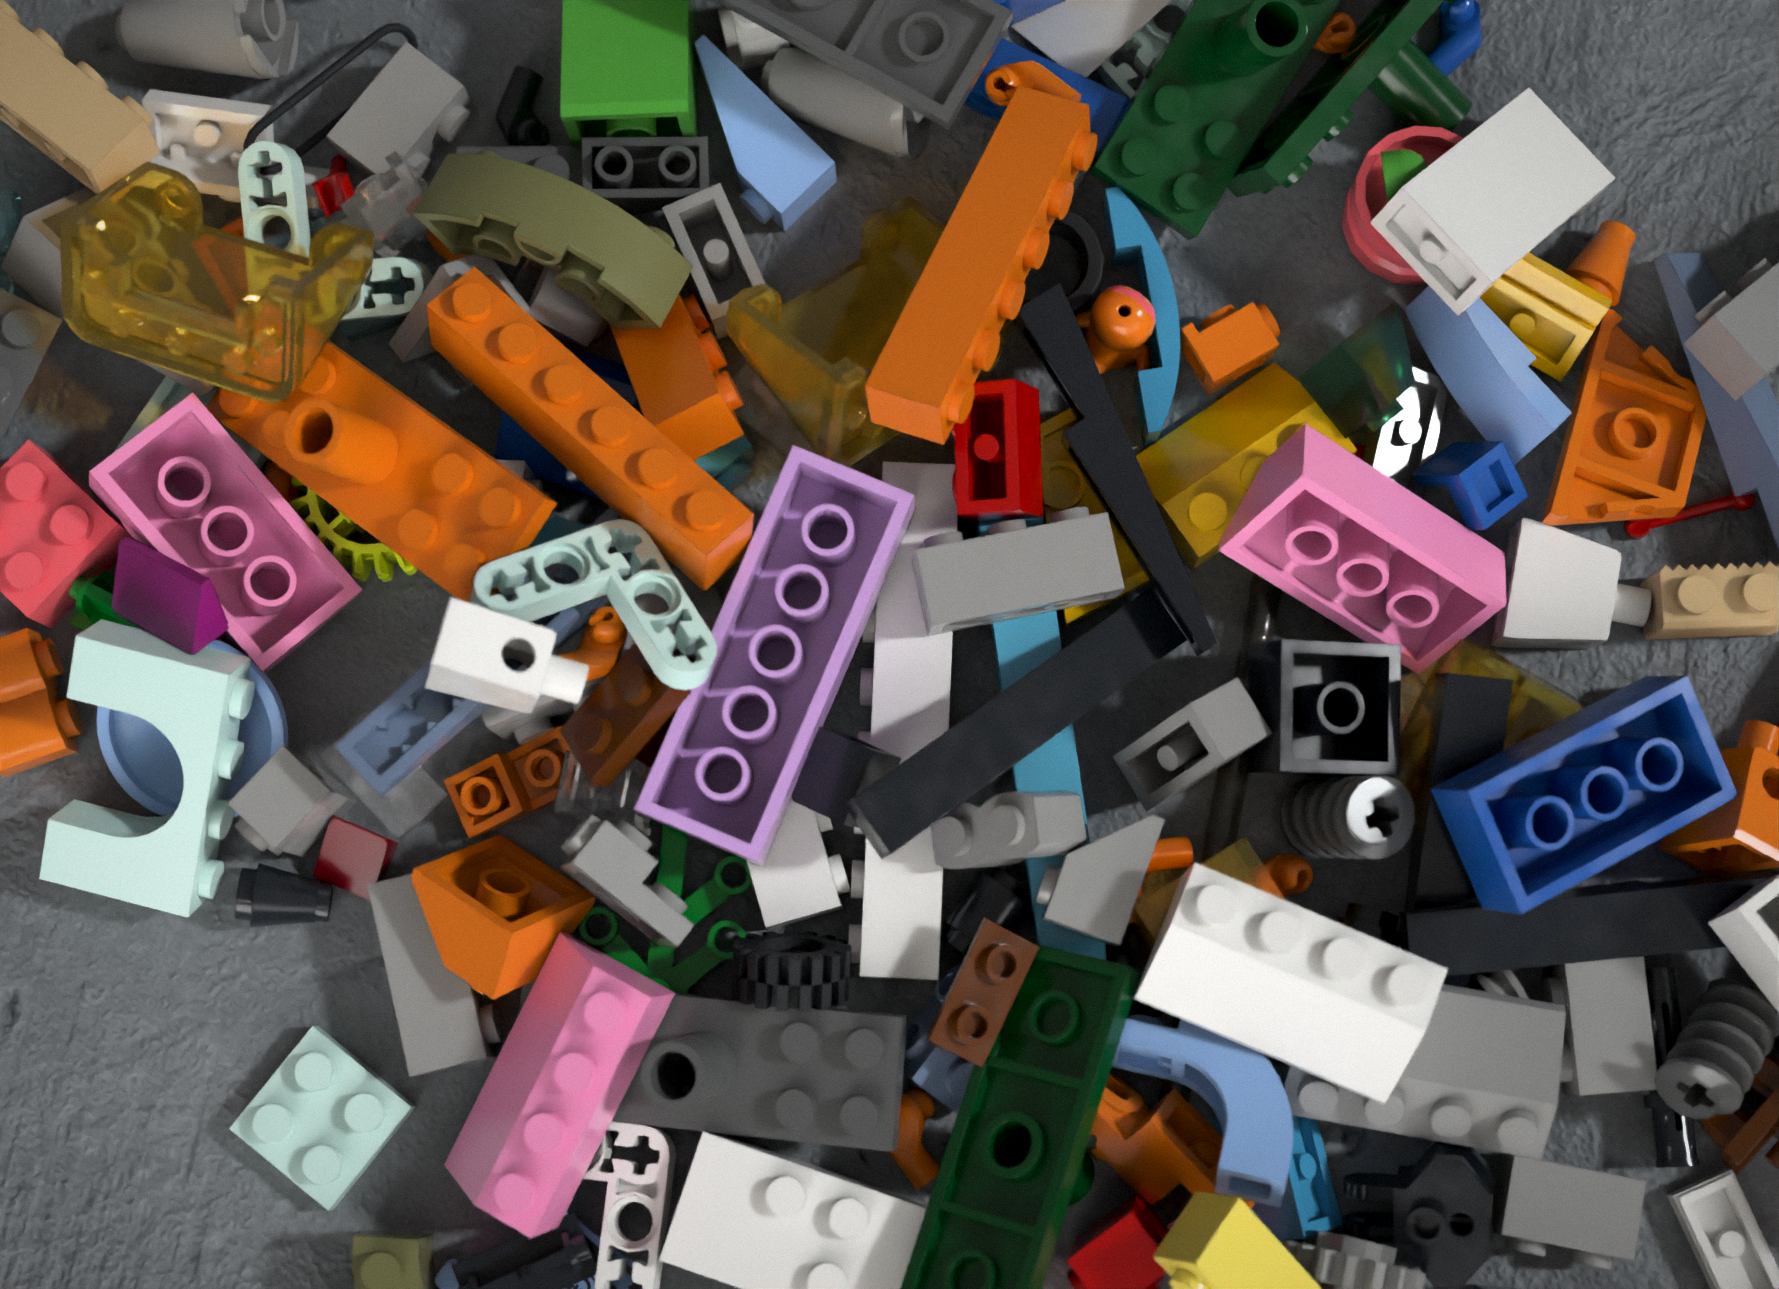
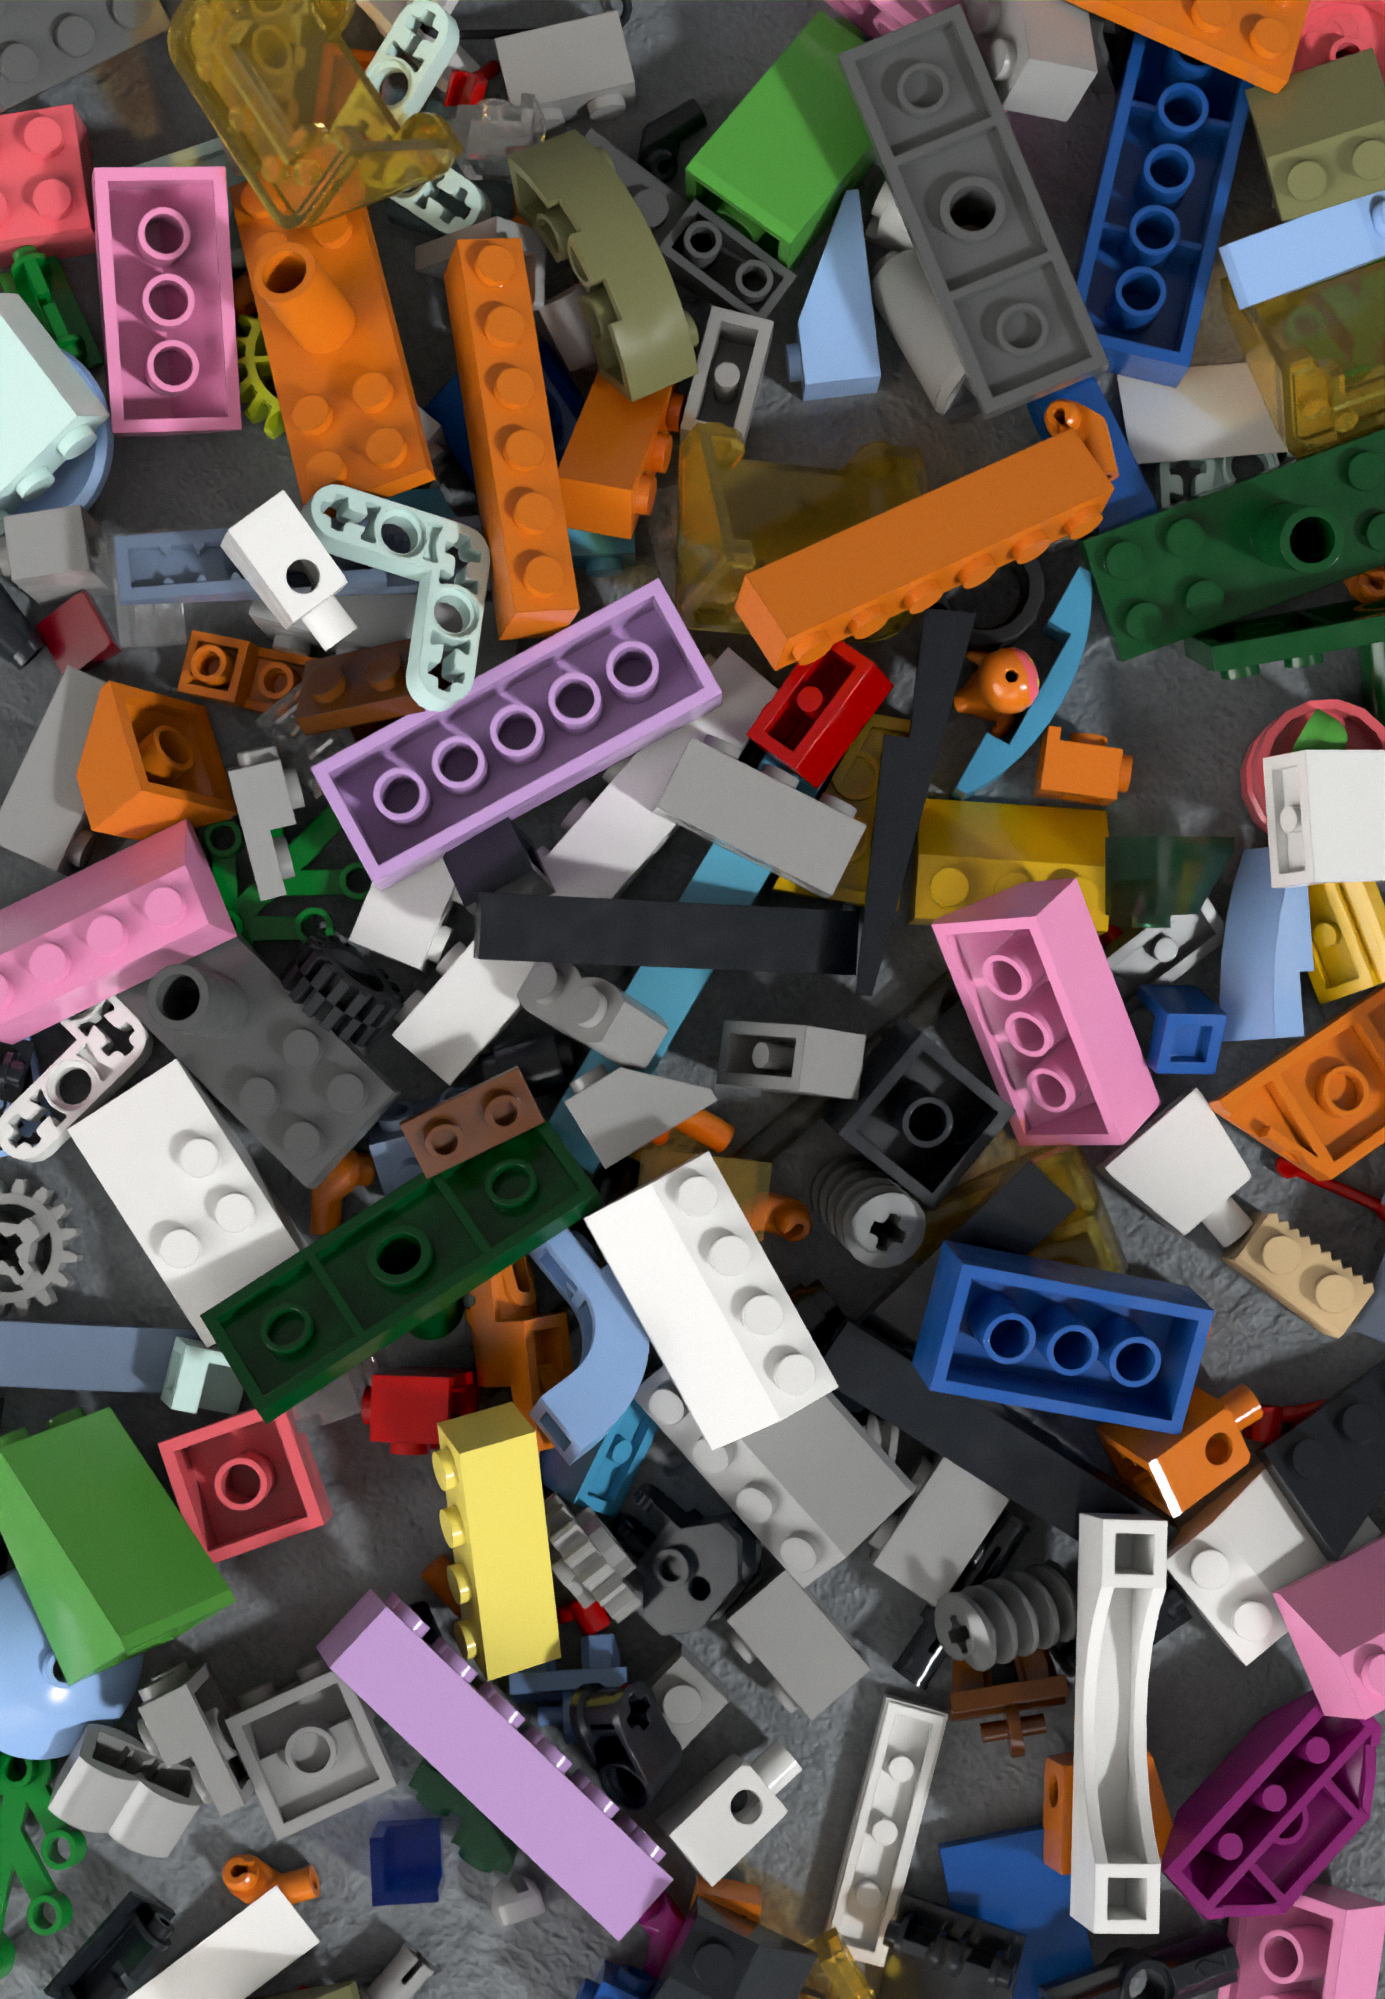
camera: 30 degrees right, 5 degrees up
(166, 598) = (79, 316): magenta slope -> none
(600, 643) = (384, 620): orange arm -> none

